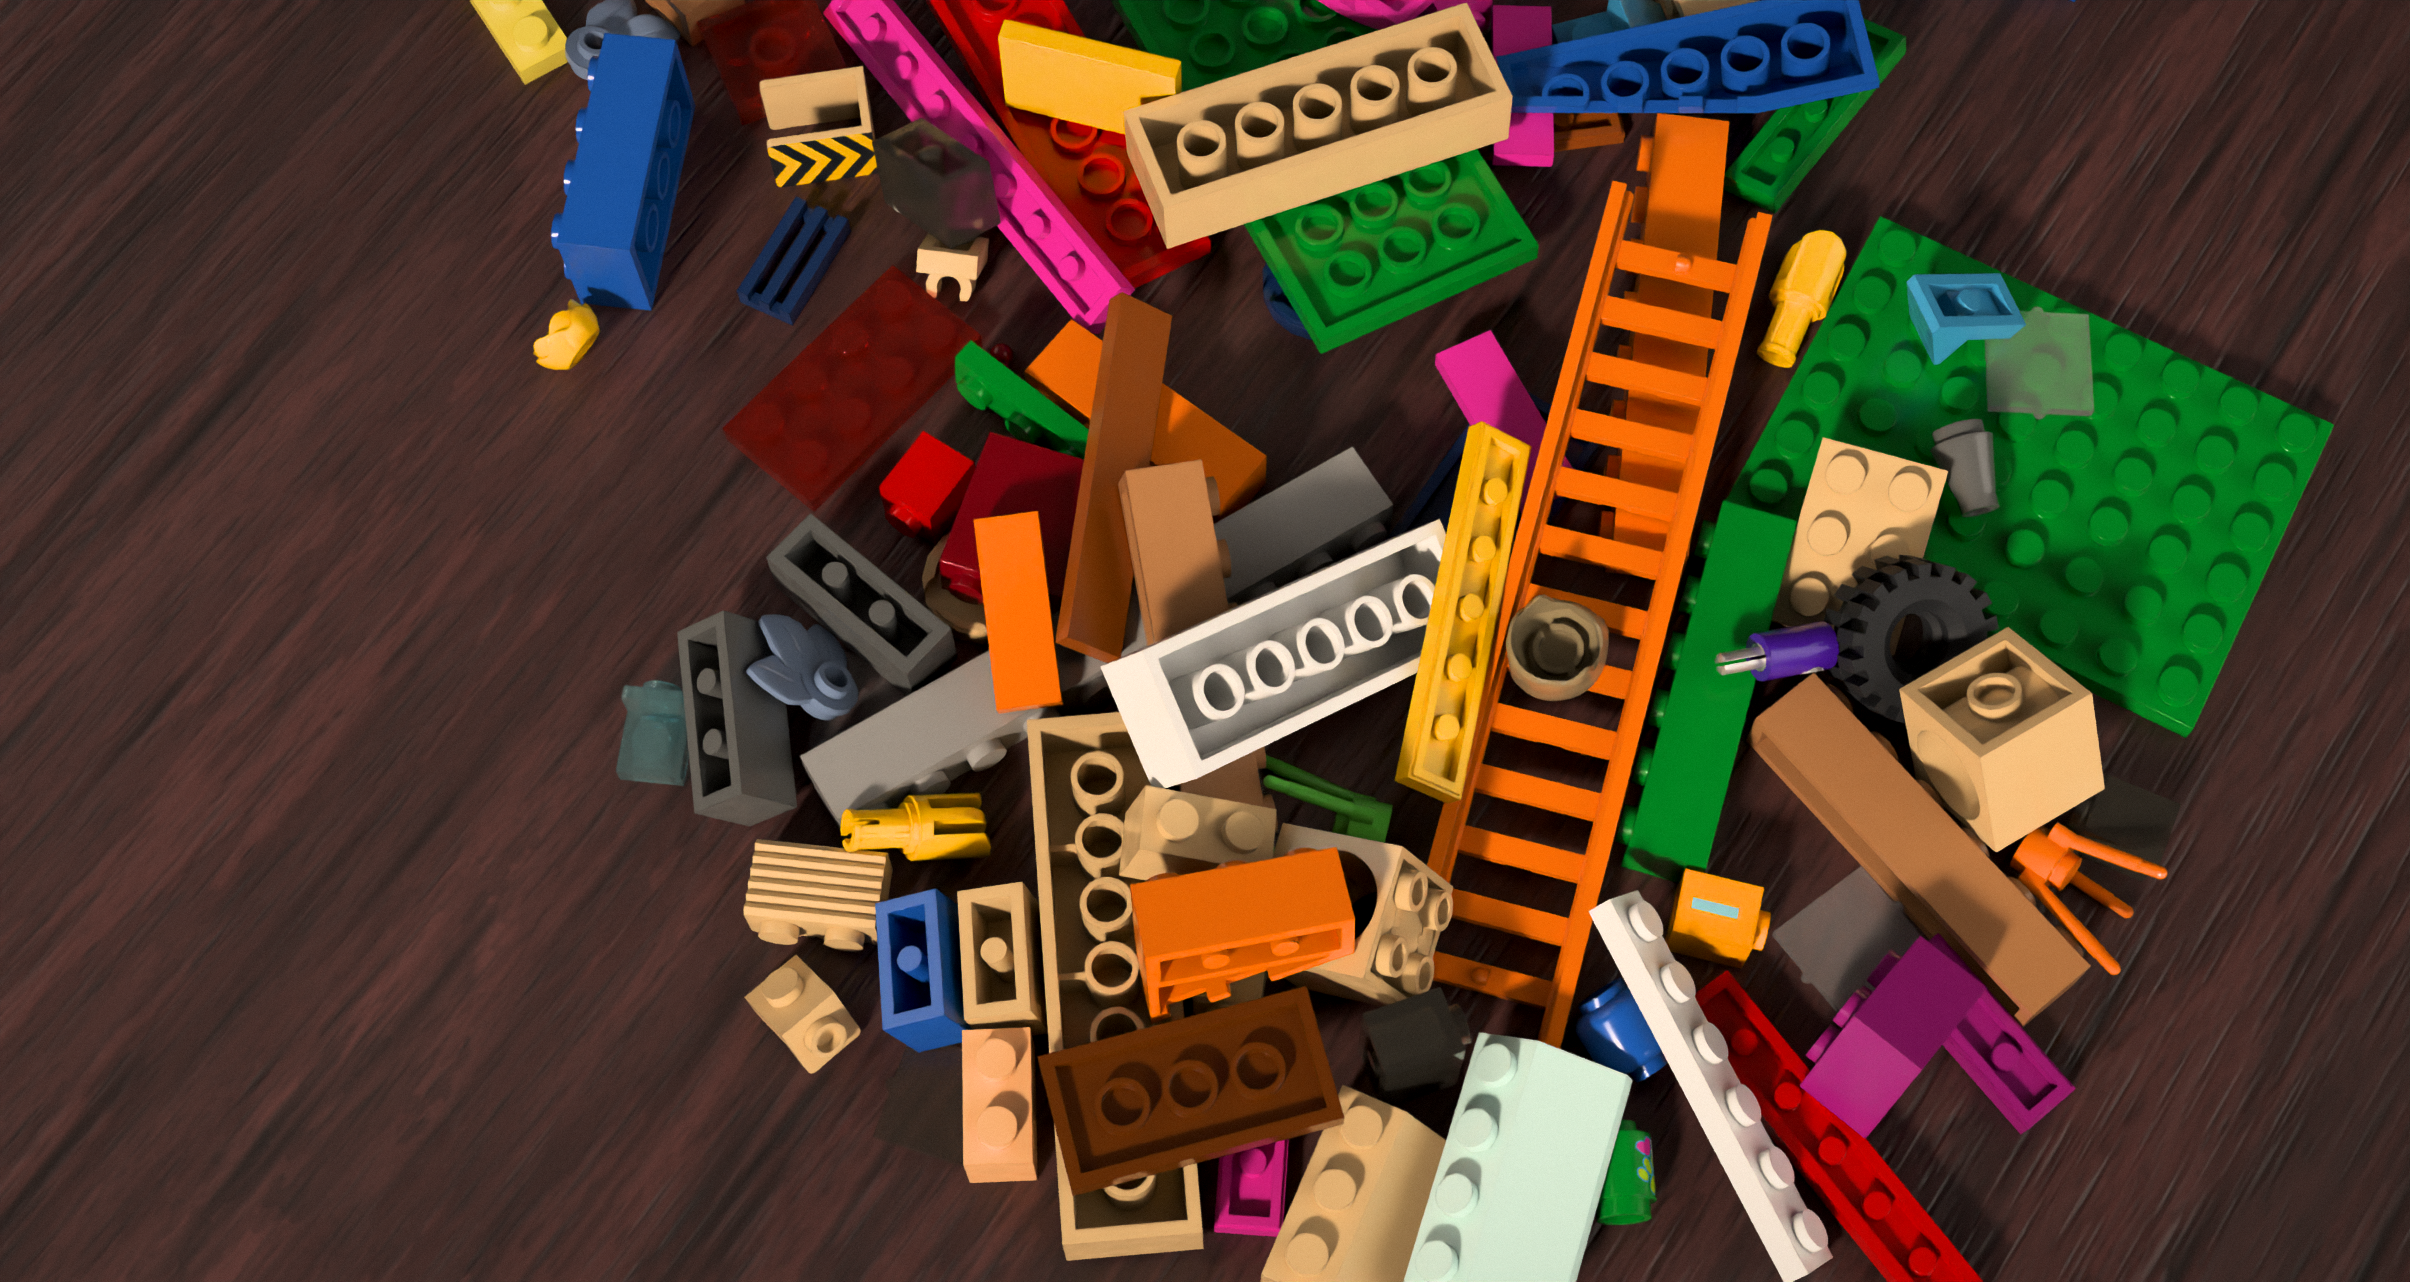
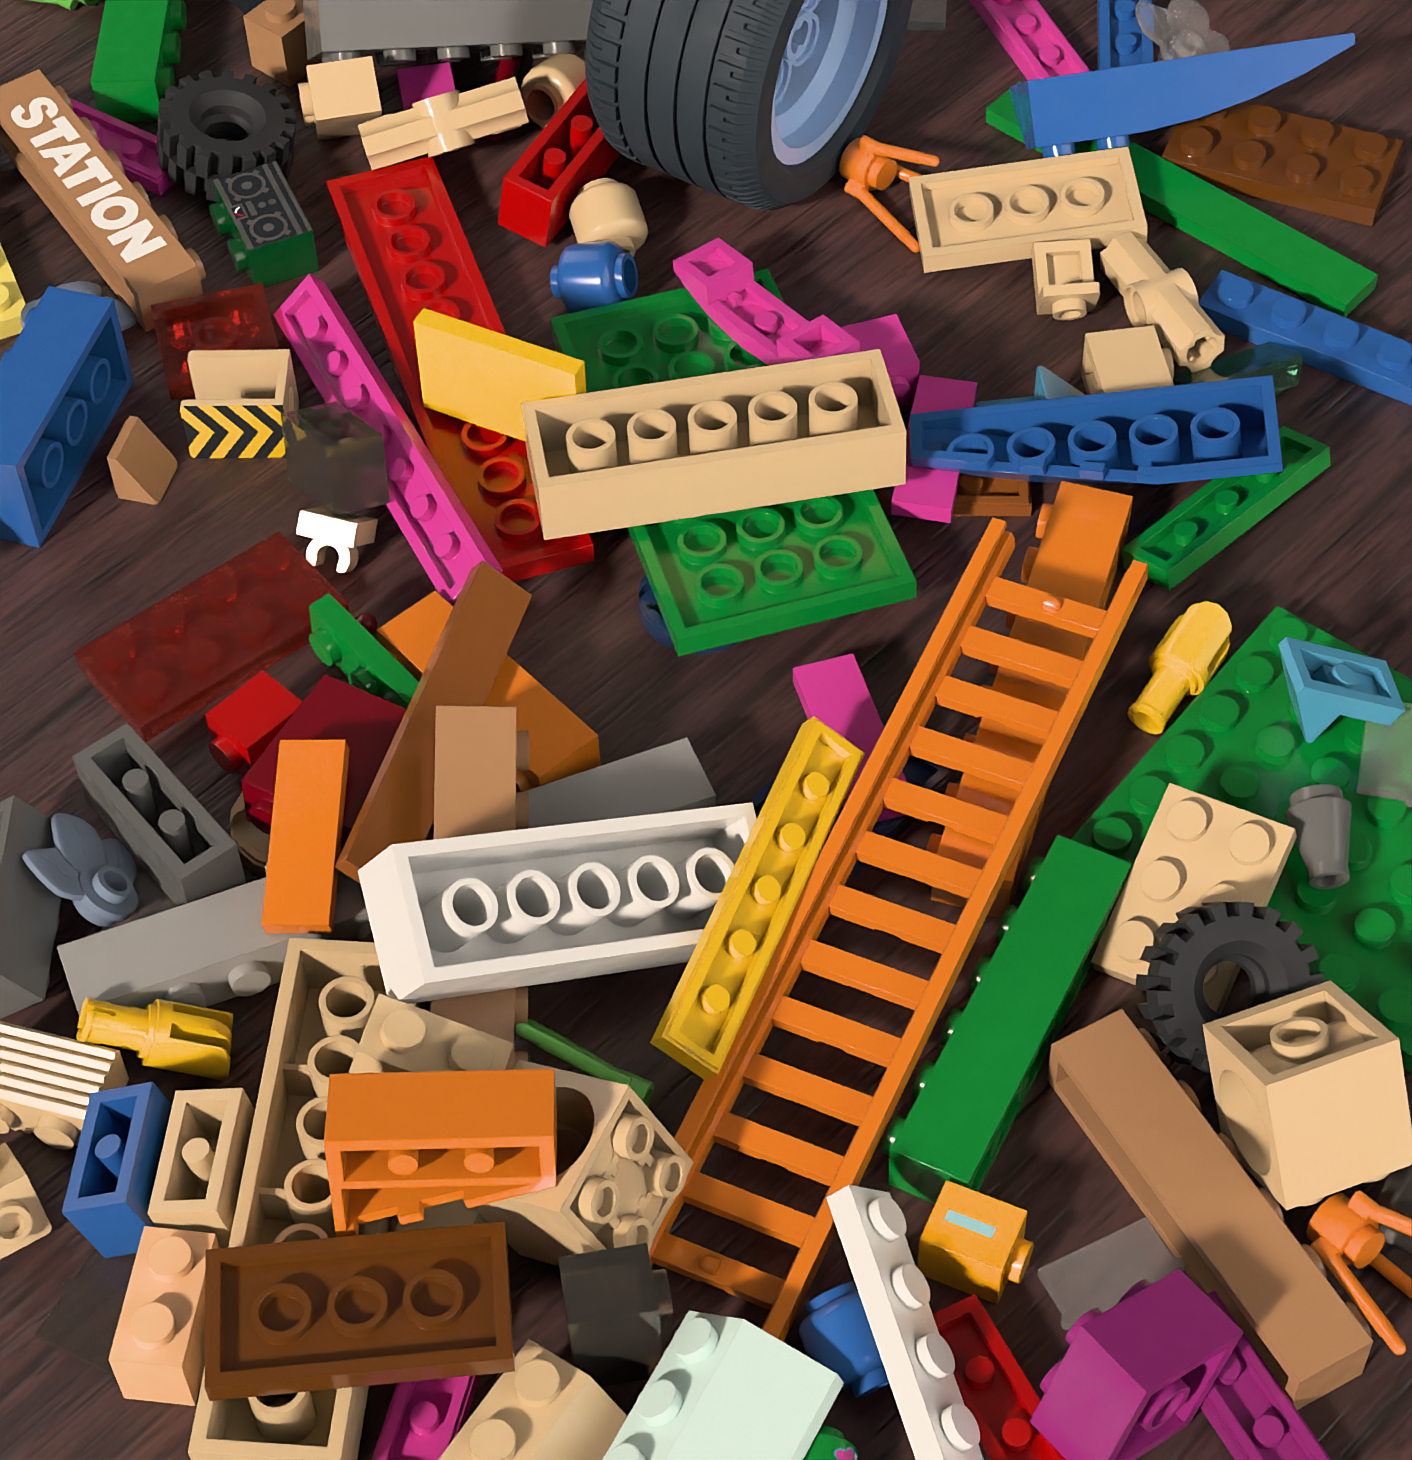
camera: 10 degrees right, 15 degrees down
(734, 207) = (140, 464): none -> medium nougat slope
(795, 216) = (179, 514): dark blue tile -> none
(1556, 648) = (847, 941): dark tan hair -> none
(1784, 652) = (1089, 981): dark purple piece -> none

